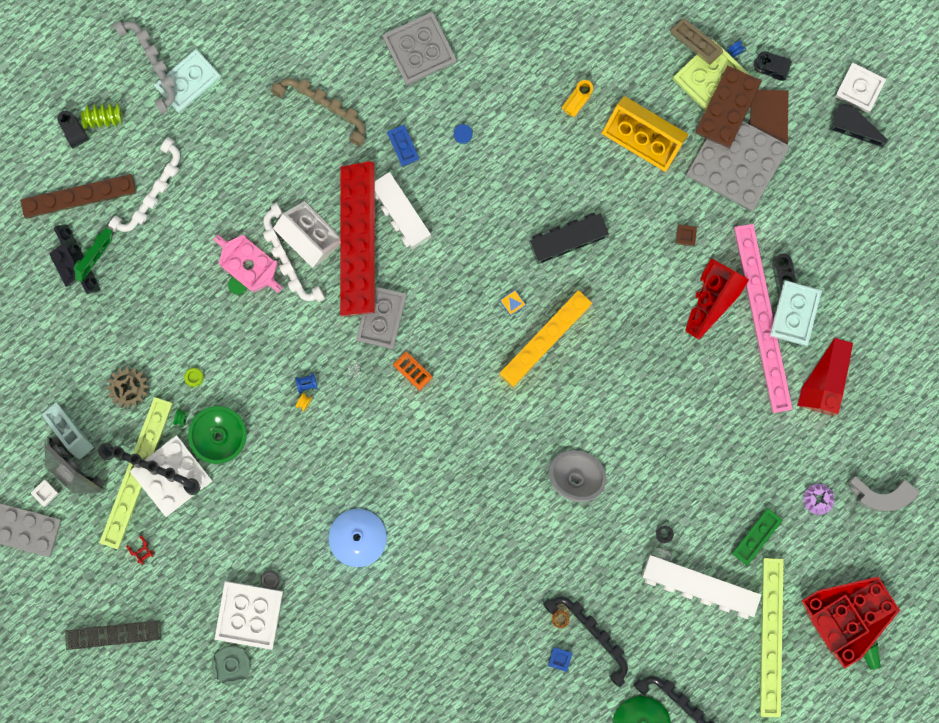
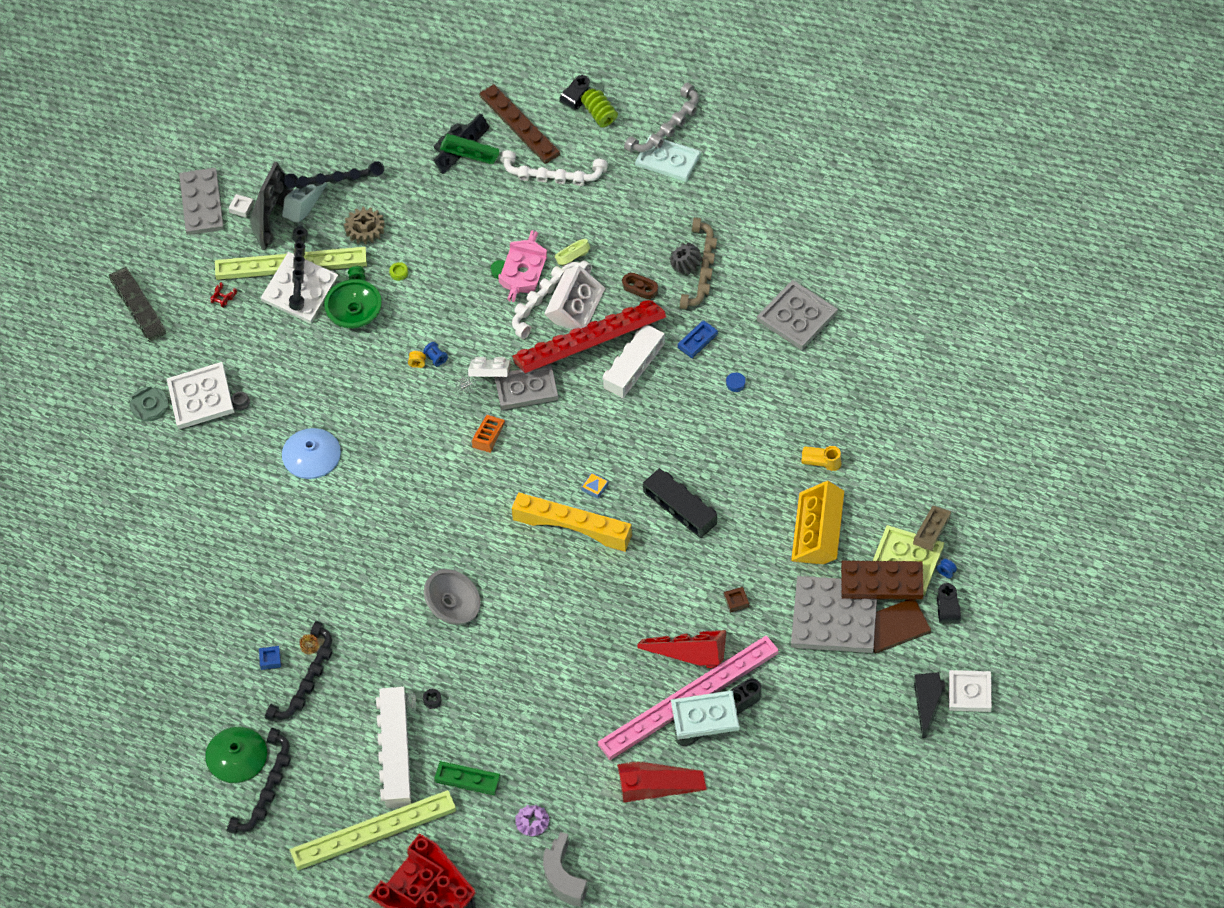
camera: 70 degrees right, 25 degrees down
(58, 436) = (291, 181): none -> black bar
(253, 212) = (573, 251): none -> yellowish green plate
(307, 113) = (685, 258): none -> dark grey gear
(319, 169) = (640, 285): none -> reddish brown plate
(349, 341) = (489, 368): none -> white plate

